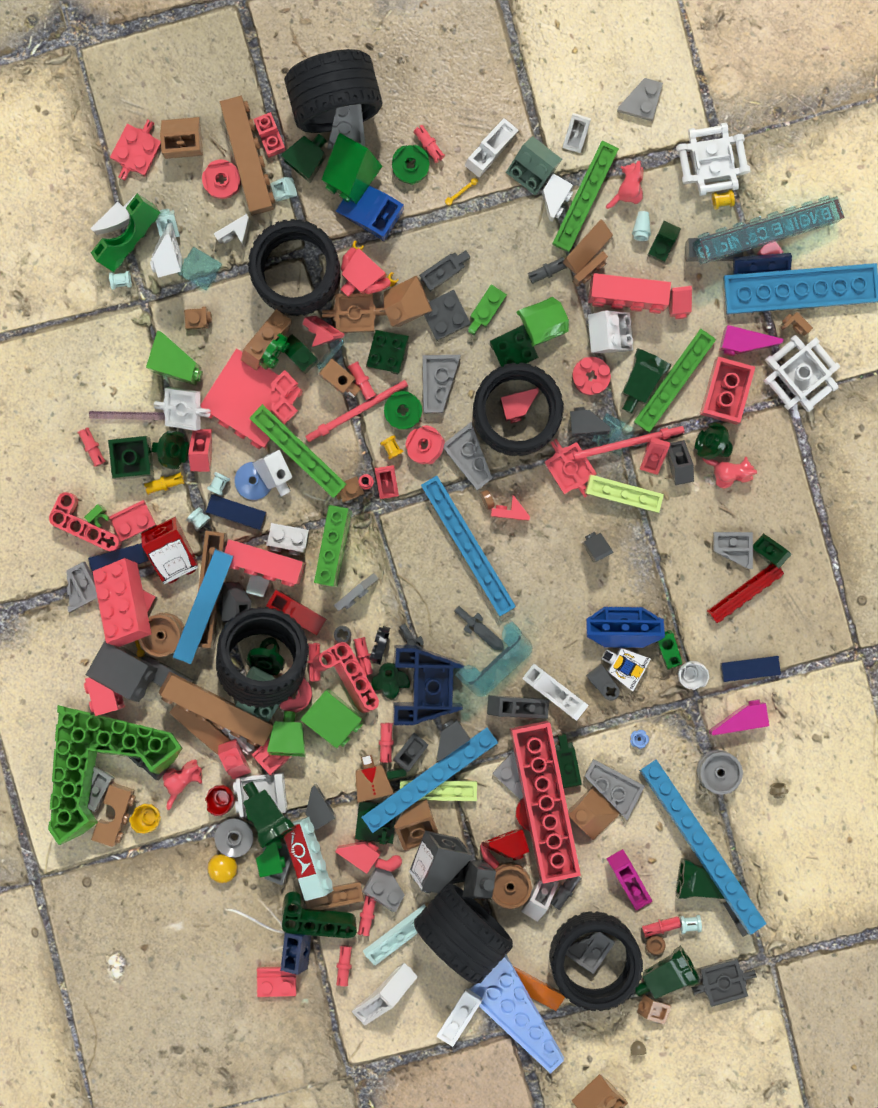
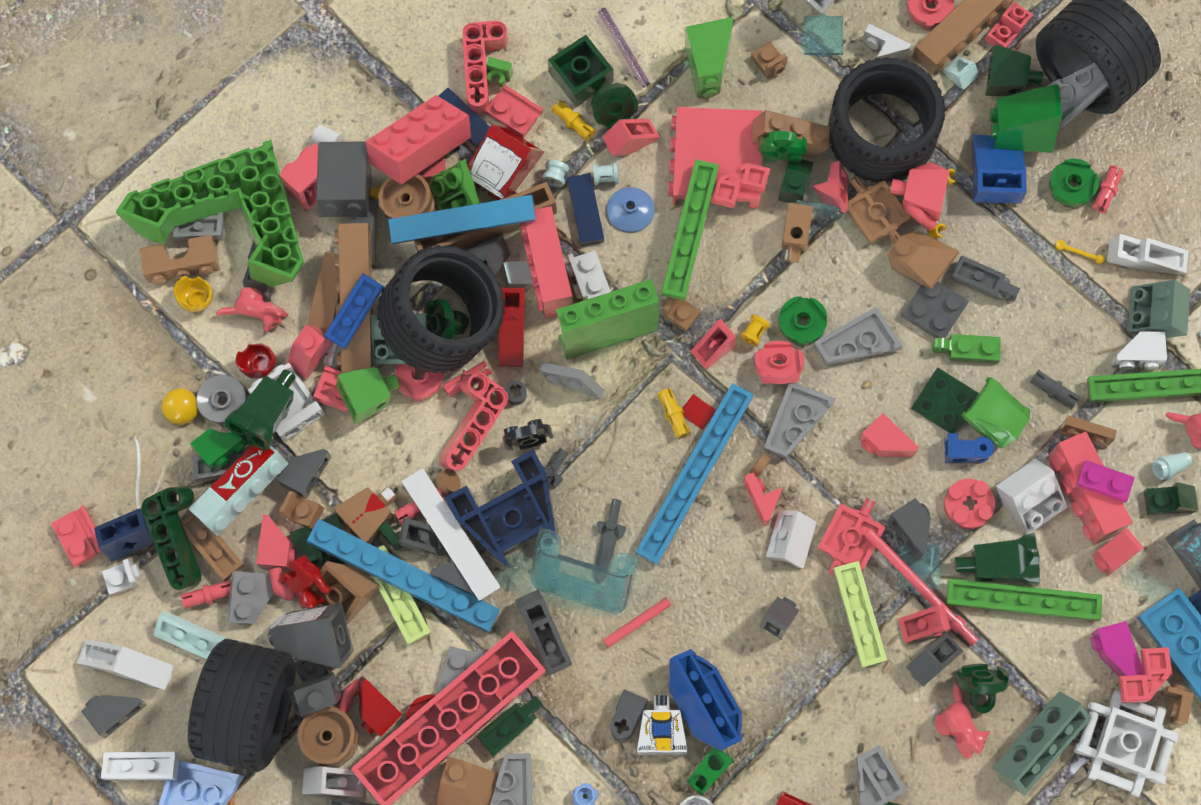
camera: 60 degrees right, 15 degrees down
(78, 665) = (325, 134): none -> white brick
(80, 586) = (411, 94): light grey wing -> none
(91, 447) = (568, 28): coral pin -> none
(172, 597) = (454, 187): none -> bright green slope
(182, 408) = (664, 92): white plate -> none
(227, 716) = (354, 311): none -> blue tile
(274, 471) = (657, 211): white torso -> none
(322, 967) = (122, 577): none -> white bracket
(324, 429) = (730, 250): coral bar -> none
(332, 719) = (414, 429): bright green slope -> none
(344, 823) = (301, 510): none -> medium nougat bracket
(344, 965) = (135, 600): coral pin -> none
(361, 380) = (808, 259): coral pin -> none
(361, 480) = (700, 320): coral pin -> none
(363, 655) = (497, 431): coral axle -> none
(380, 714) = (448, 481): none -> medium nougat tile
(387, 351) = (857, 269): dark green hinge -> none
(390, 683) = (489, 474): dark green plate -> none
(395, 848) = (302, 579): none -> red animal
(411, 1019) = (111, 712): none -> dark grey slope
(418, 536) = (673, 413): none -> yellow pin
(419, 733) = (451, 534): none -> white sticker
(425, 518) = (698, 411): none -> red sticker
(525, 373) = (892, 391): black tyre -> none
(545, 641) = (637, 622): none -> coral bar
(548, 508) = (791, 538): none -> white panel
(555, 692) = (585, 660): white arch -> none
(559, 349) = (967, 450): none -> blue leg
(588, 247) = (1124, 419): medium nougat slope -> none
(635, 282) = (1105, 481): none -> dark pink plate
(727, 390) = (1051, 664): coral brick -> none
(776, 342) = (1156, 671): none -> coral tile
(780, 432) = (1041, 743): none -> sand green brick

